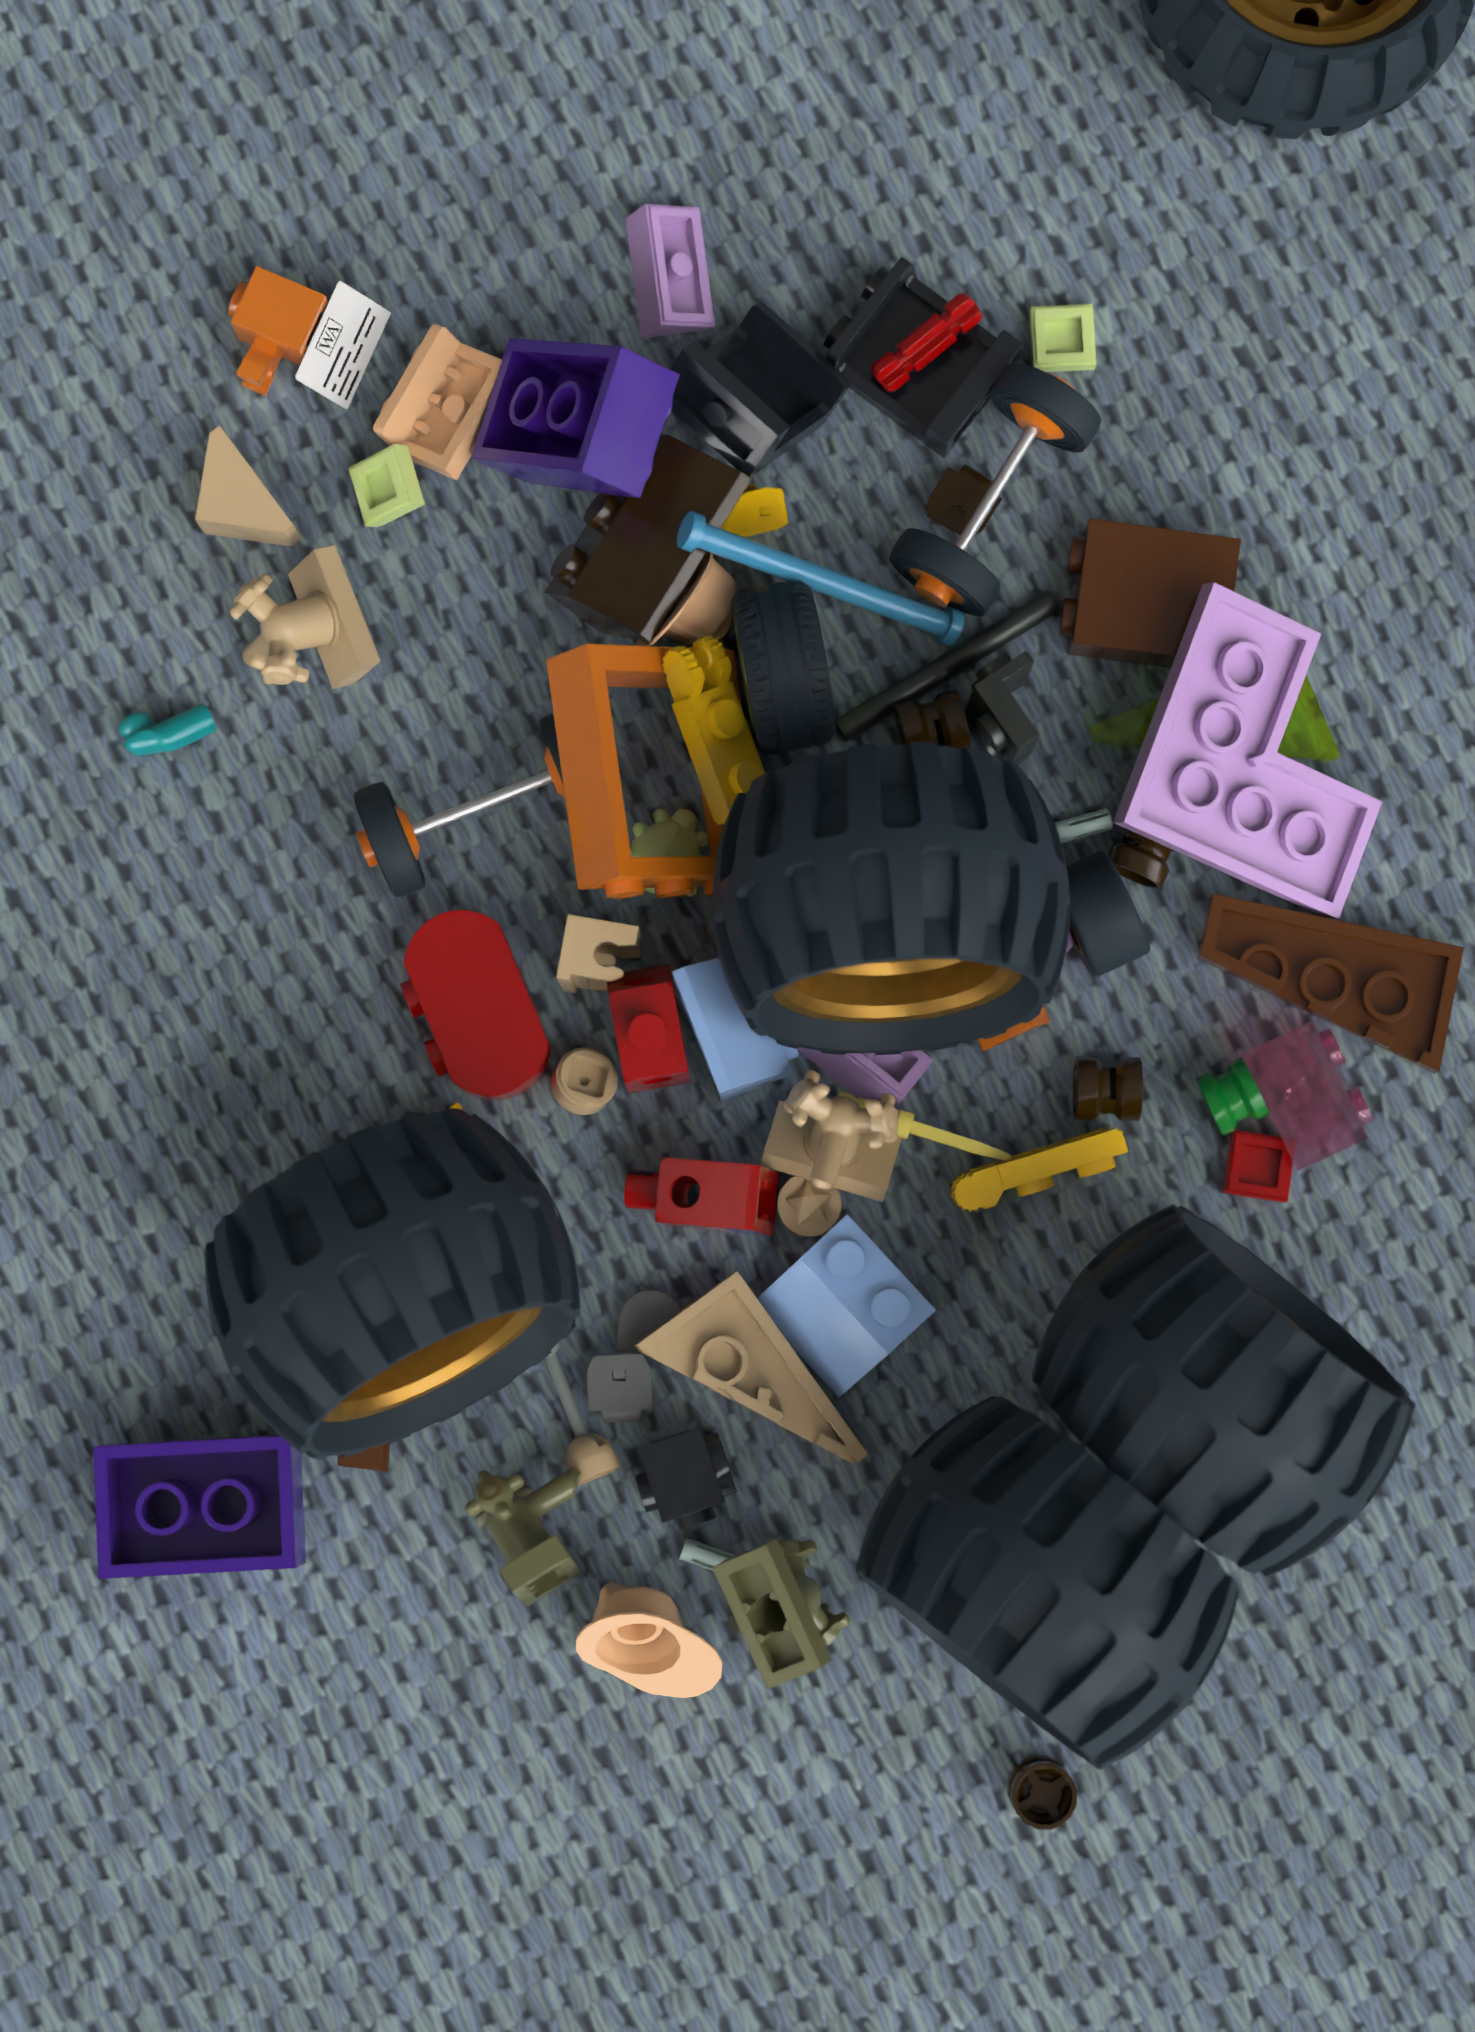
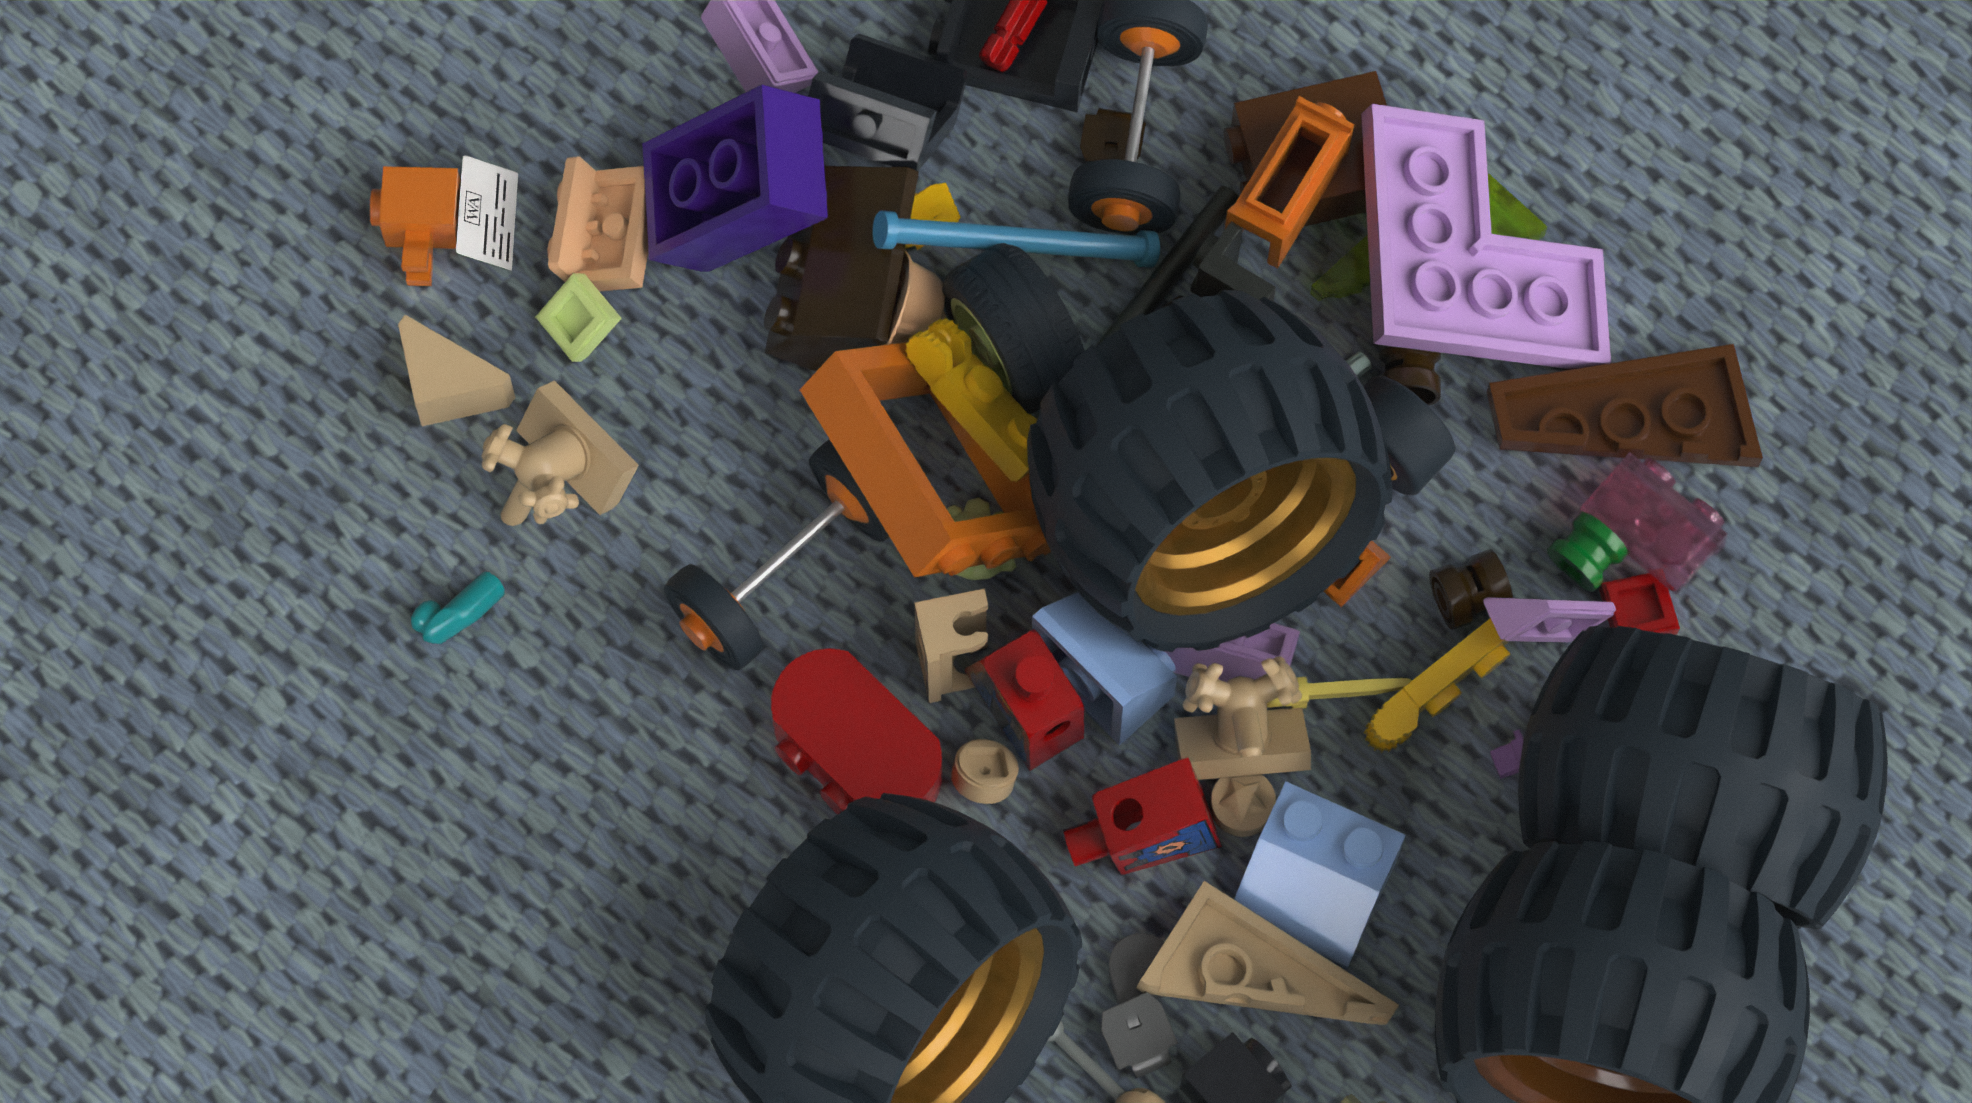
camera: 25 degrees left, 15 degrees down
(1067, 674) = (1320, 125): none -> orange window
(1074, 1259) = (1507, 757): none -> medium lavender piece
(1159, 1146) = (1545, 619): none -> lavender slope

